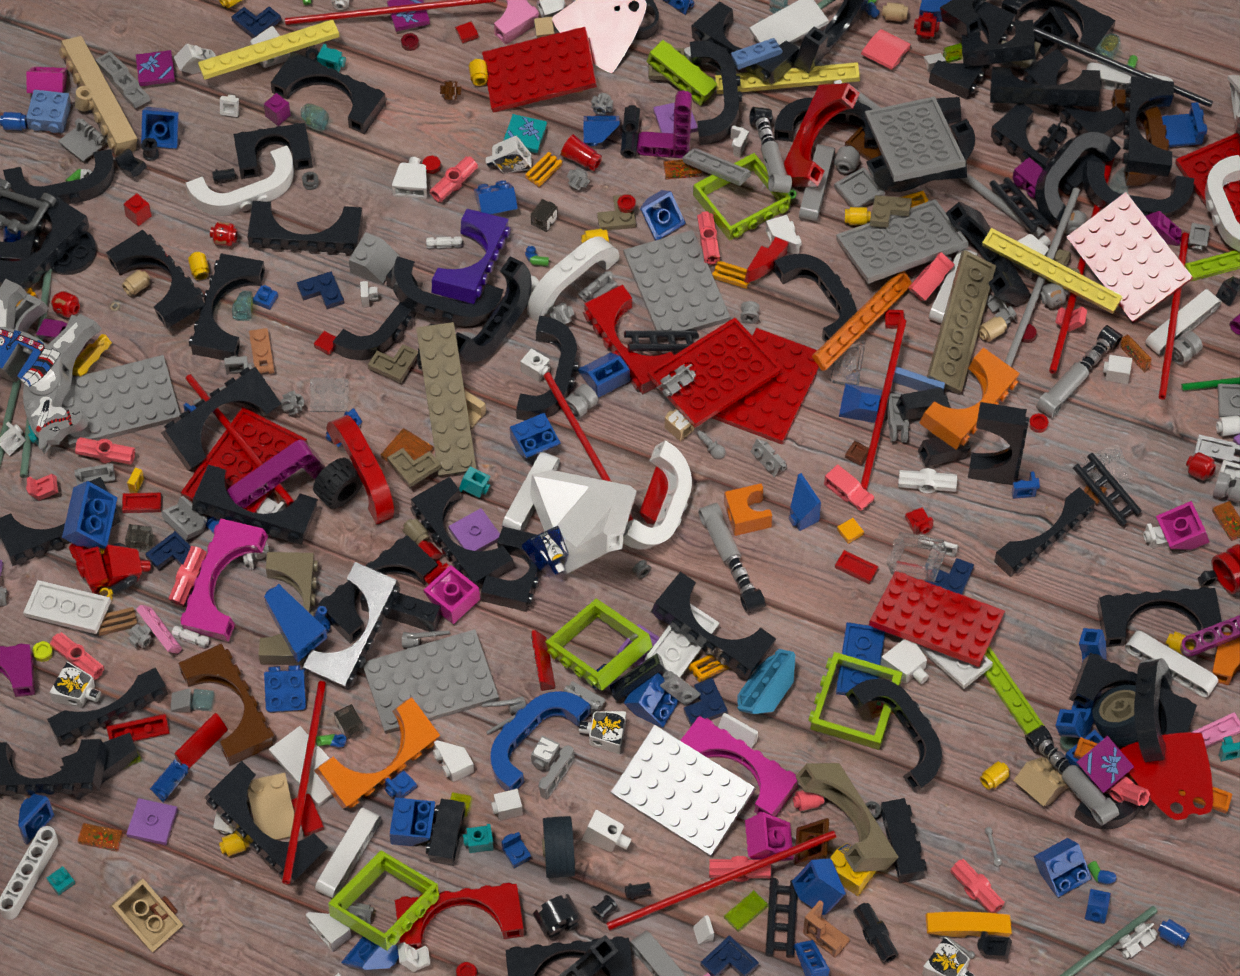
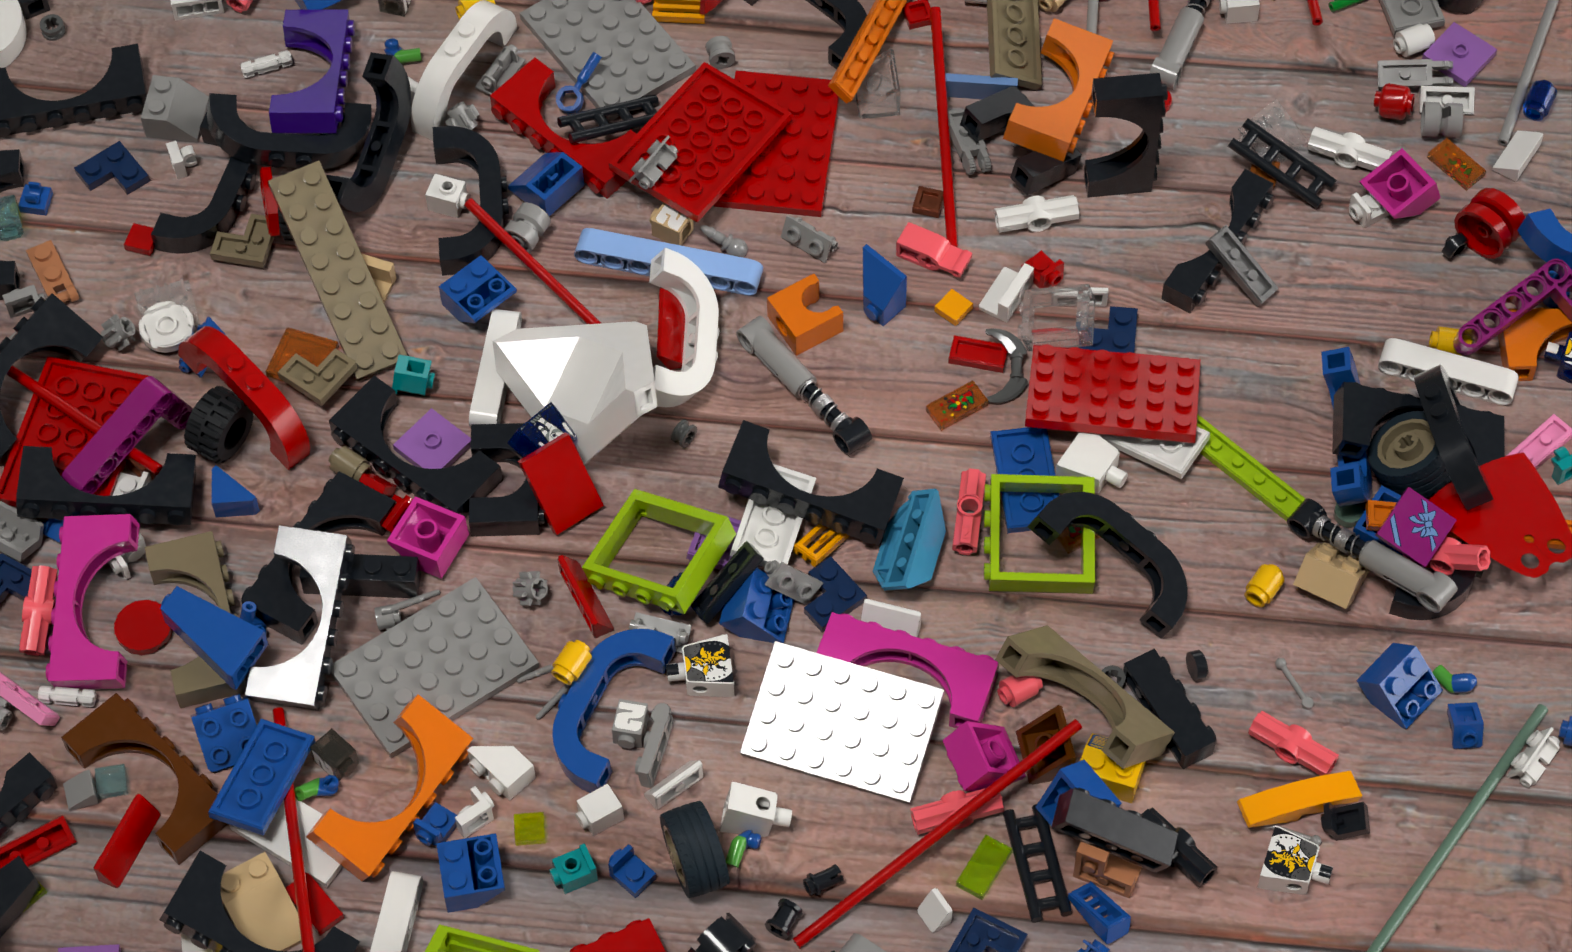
camera: 15 degrees left, 0 degrees up
(169, 780) = (97, 908): blue hinge -> none
(250, 604) = (142, 627): none -> red tile
(297, 723) = (261, 777): none -> blue tile
(324, 406) = (166, 326): none -> white tile
(332, 533) = (230, 497): none -> blue slope
(414, 350) = (269, 202): none -> red tile
(428, 786) = (477, 816): none -> white bracket
(446, 831) = (523, 872): black brick -> none
(508, 646) = (530, 588): none -> light grey gear
(518, 702) = (571, 662): none -> yellow brick
(548, 581) = (561, 483): none -> red tile
(562, 801) = (675, 784): none -> white slope
(592, 851) = (740, 844): none -> bright green arm
(647, 438) = (635, 255): none -> light blue beam
(650, 307) = (582, 78): none -> blue piece
(810, 681) = (968, 524): none -> coral piece
(830, 598) = (956, 405): none -> clear orange tile
(834, 910) = (1115, 829): none -> black brick
(860, 403) = (910, 135): blue slope -> none
(876, 592) = (1017, 352): none -> dark grey piece
(889, 529) = (1007, 292): none -> white panel
(931, 816) = (1196, 664): none -> black tile
(1024, 488) = (1172, 190): blue bracket -> none
(1054, 553) = (1241, 265): none -> flat silver tile
(1117, 611) = (1454, 285): black arch -> none
(1156, 491) = (1347, 149): none -> white piece

